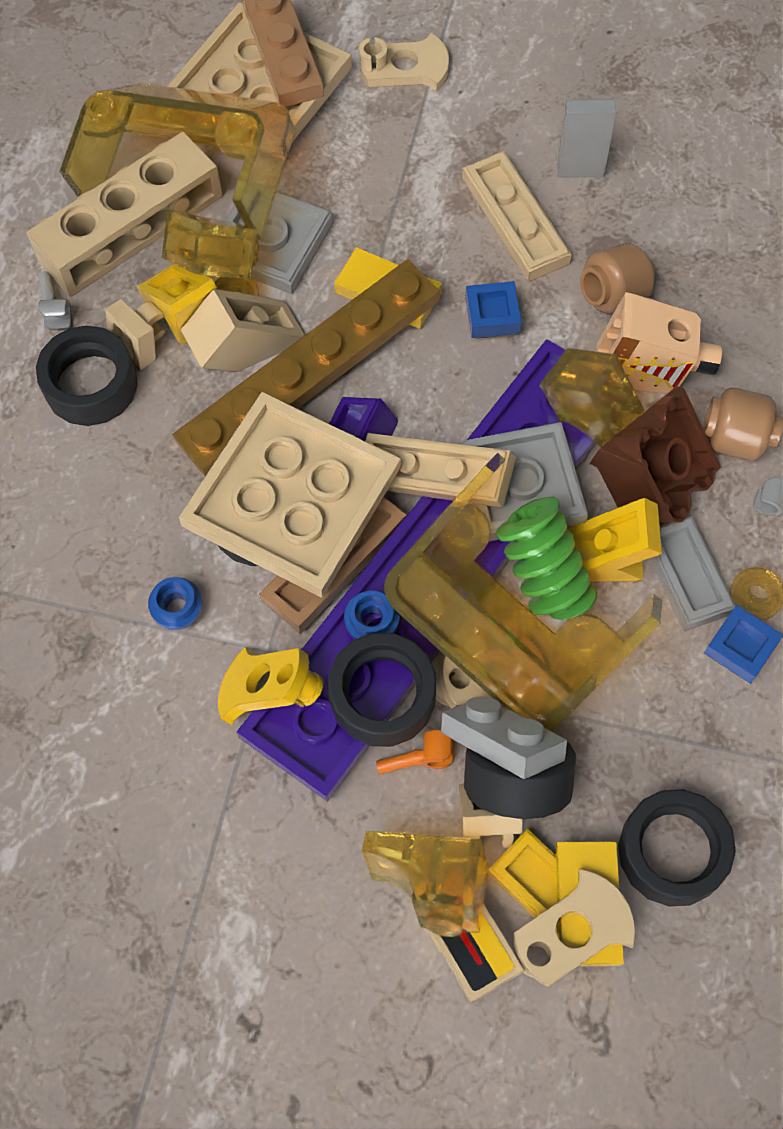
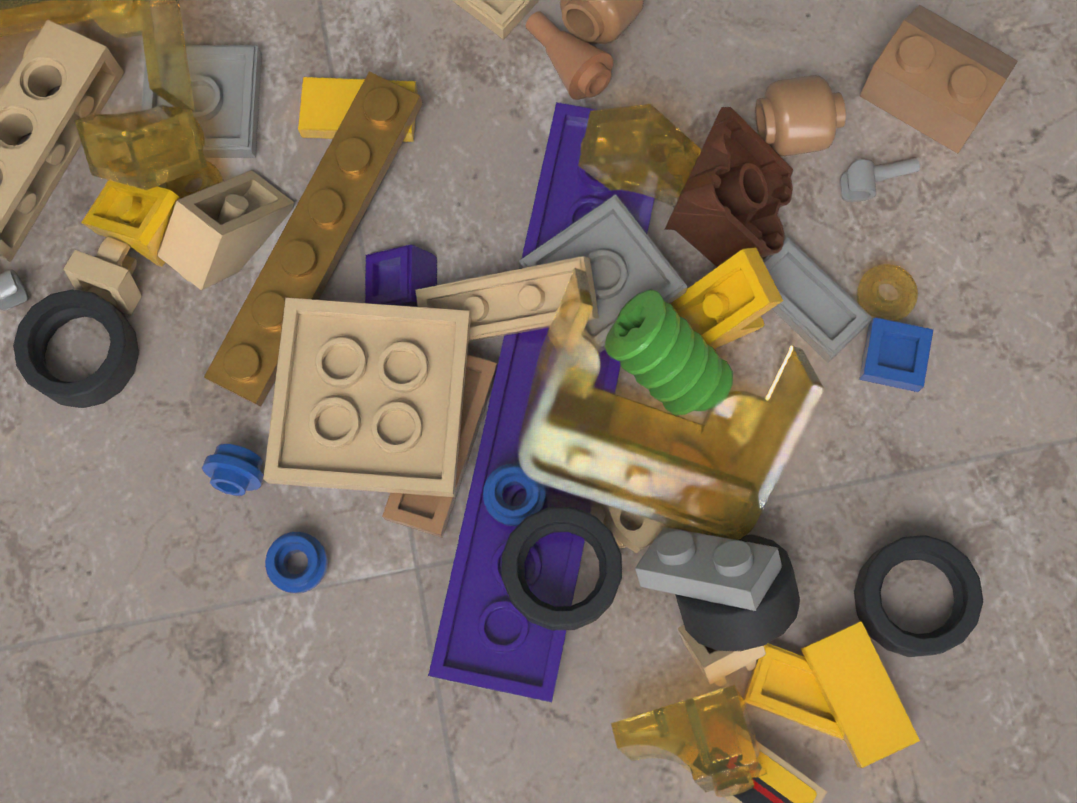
camera: 20 degrees left, 10 degrees up
(160, 511) = (234, 469): none -> blue plate
(288, 682) = (461, 608): yellow piece -> none
(436, 754) = (638, 604): orange hand -> none
(493, 309) = (483, 90): blue plate -> none
(578, 319) = (579, 64): none -> nougat cone
(599, 905) = (886, 703): tan piece -> none
(657, 344) = (675, 64): light nougat torso -> none

